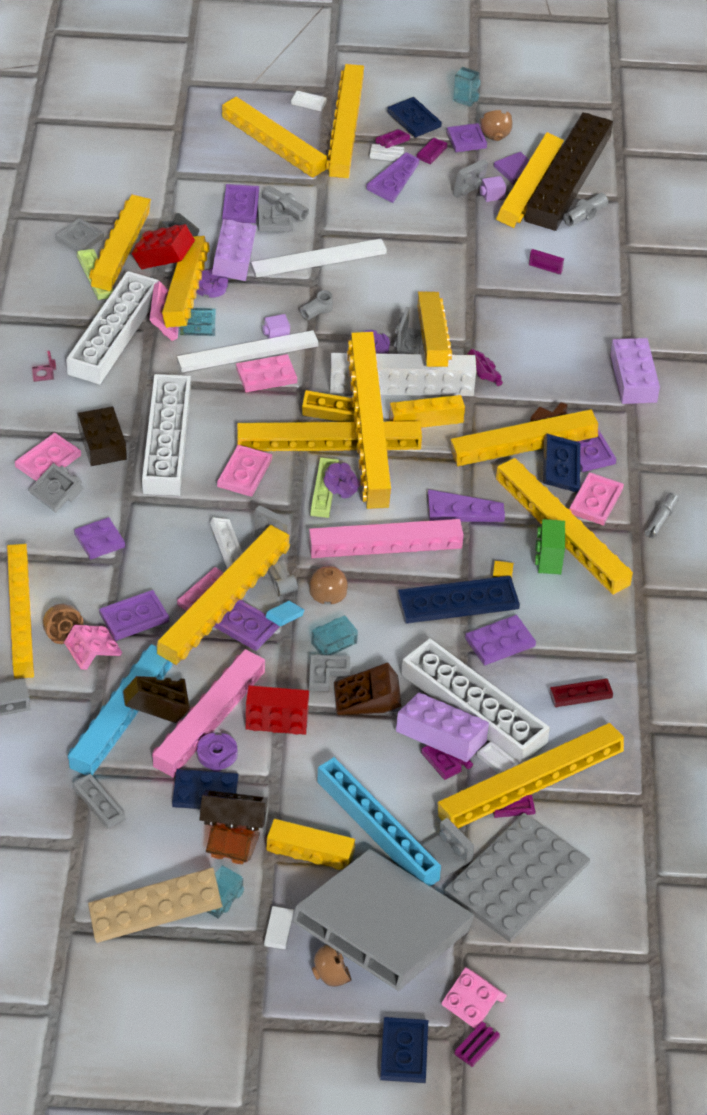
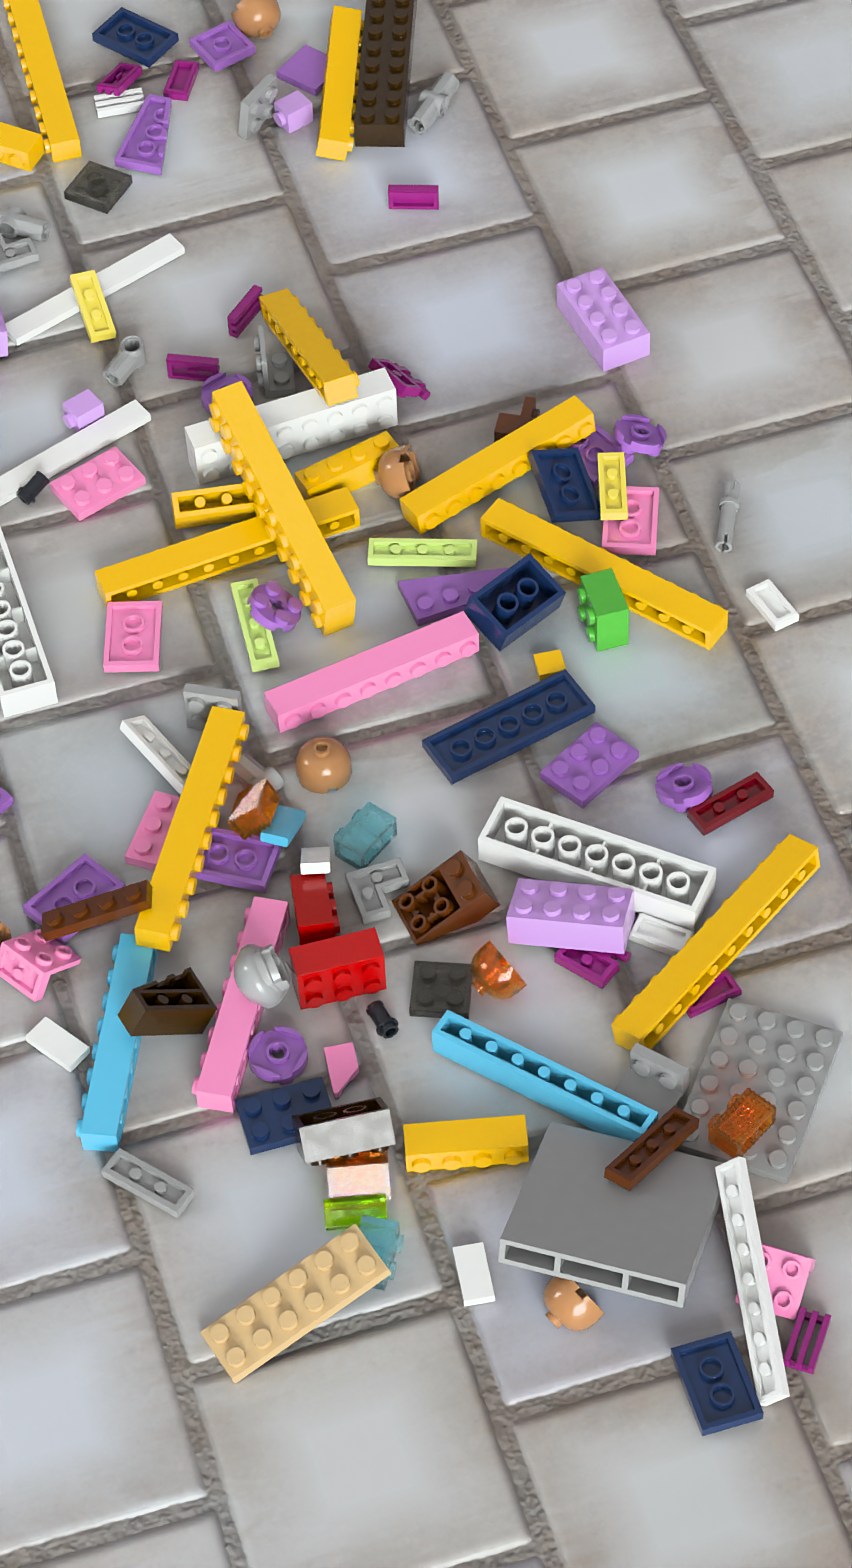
camera: 15 degrees left, 5 degrees up
(83, 699) = (58, 1044): none -> white tile
(140, 624) = (96, 910): none -> reddish brown plate
(211, 858) = (346, 1211): none -> clear neon green tile
(224, 363) = (33, 488): none -> black pin
(225, 696) = (262, 975): none -> light grey helmet
(254, 771) = (341, 1066): none -> bright pink tile
(269, 596) = (254, 809): none -> clear orange brick
(280, 667) = (314, 907): none -> red wedge
(294, 755) = (384, 1022): none -> black pin
(295, 640) = (315, 860): none -> white tile
(311, 267) = (92, 306): none -> light yellow plate
(341, 744) = (440, 988): none -> clear smoke plate
(349, 198) = (98, 187): none -> clear smoke plate
(356, 321) = (191, 367): none -> magenta tile
(377, 746) = (494, 974): none -> clear orange cylinder
(406, 298) = (244, 311): none -> magenta tile
(425, 886) = (651, 1148): none -> reddish brown plate
(452, 476) = (422, 552): none -> yellowish green plate
(454, 993) = (752, 1281): none -> white tile
(458, 422) = (397, 471): none -> medium nougat cylinder
(493, 891) = (741, 1123): none -> clear orange brick
(495, 524) = (514, 602): none -> dark blue brick
(554, 672) = (696, 786): none -> medium lavender plate
(592, 473) = (612, 486): none -> light yellow plate
(625, 448) = (638, 435): none -> medium lavender plate
(666, 579) = (772, 605): none -> white tile

